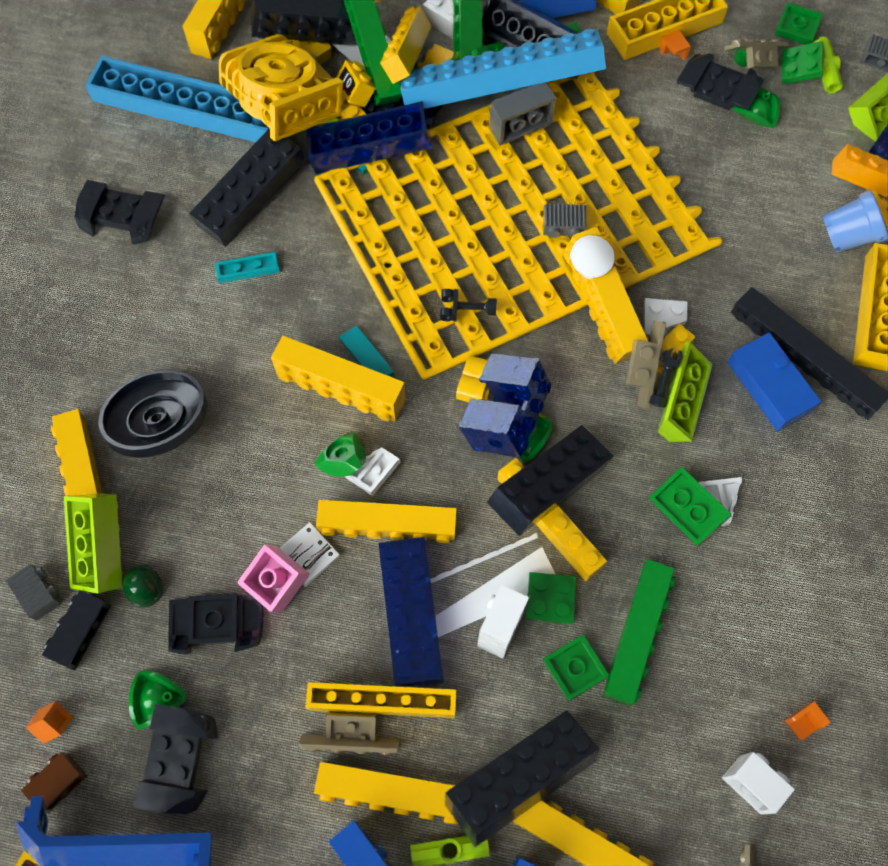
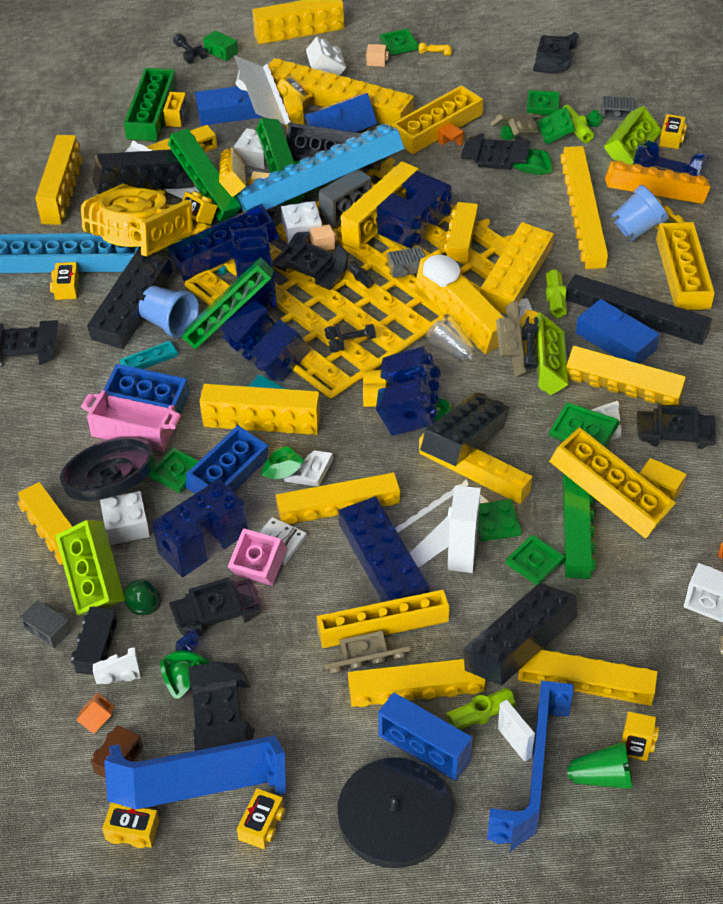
camera: 15 degrees left, 20 degrees down
(97, 679) = (117, 669): none -> white wing
(154, 480) = (124, 518): none -> white brick
(169, 664) = (188, 642): none -> clear blue plate
(189, 140) = (65, 281): none -> yellow brick
(198, 352) = (121, 417): none -> bright pink container
(198, 522) = (179, 531): none -> clear blue piece
(226, 318) = (148, 387): none -> blue brick
(229, 430) = (172, 470): none -> green plate
(281, 443) = (230, 461): none -> blue brick
(283, 216) = (169, 309): none -> medium blue piece
(341, 233) = (228, 303): none -> green brick
(364, 275) = (268, 343): none -> clear blue piece
(383, 194) = (248, 247): none -> clear blue piece
(460, 190) = (313, 261): none -> black piece
(463, 133) = (299, 218): none -> white brick
(480, 161) = (323, 237): none -> light nougat brick
(506, 222) = (360, 274): none -> black axle
(557, 133) = (360, 220): none -> yellow brick
(581, 340) = (451, 339): none -> clear cone
(611, 146) = (406, 219): none -> clear blue piece
(640, 193) = (461, 232): none -> yellow brick
(685, 262) = (517, 266): none -> yellow brick
(694, 601) = (612, 482): none -> yellow brick
(721, 304) = (556, 293): none -> lime piece
(755, 601) = (664, 477): none -> yellow brick
(762, 454) = (625, 377): none -> yellow brick
(795, 190) = (584, 208): none -> yellow brick
(797, 529) = (676, 424): none -> black piece
(851, 61) = (594, 118): none -> green tile

